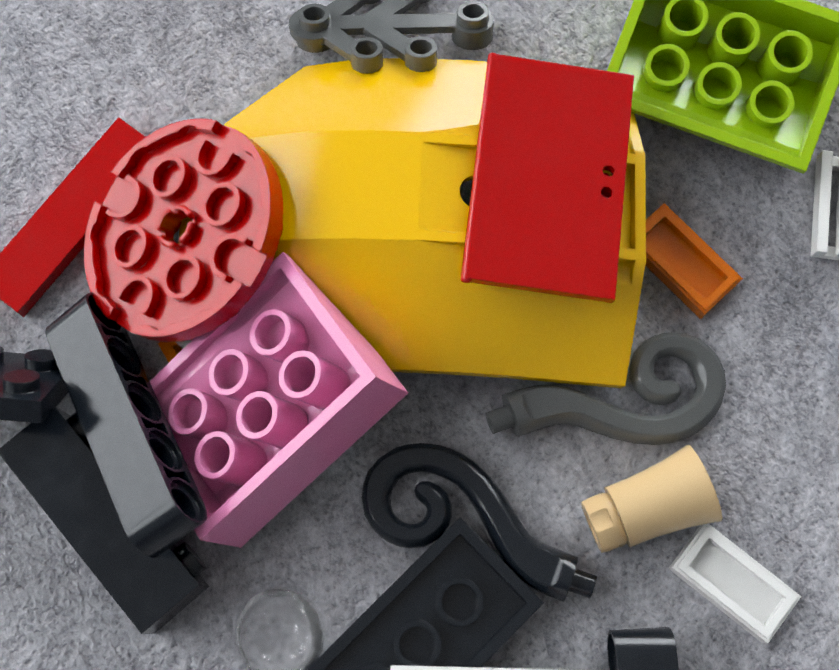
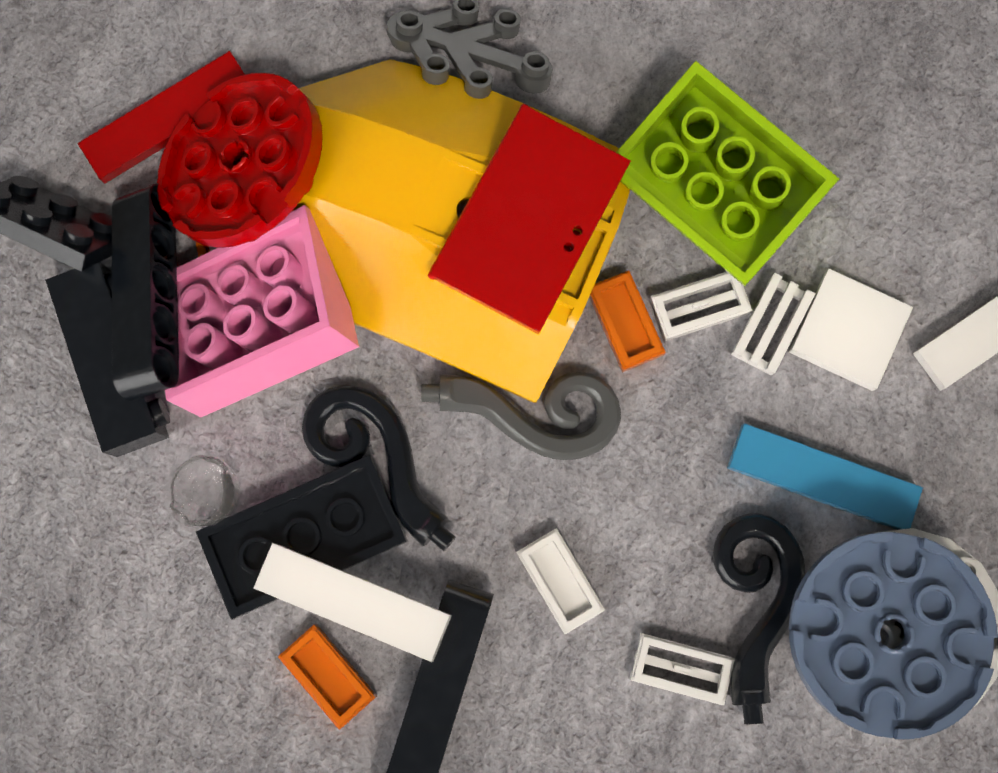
camera: 25 degrees right, 5 degrees up
(653, 502) = (517, 498): tan plant -> none
(723, 240) = (664, 317): none -> white tile

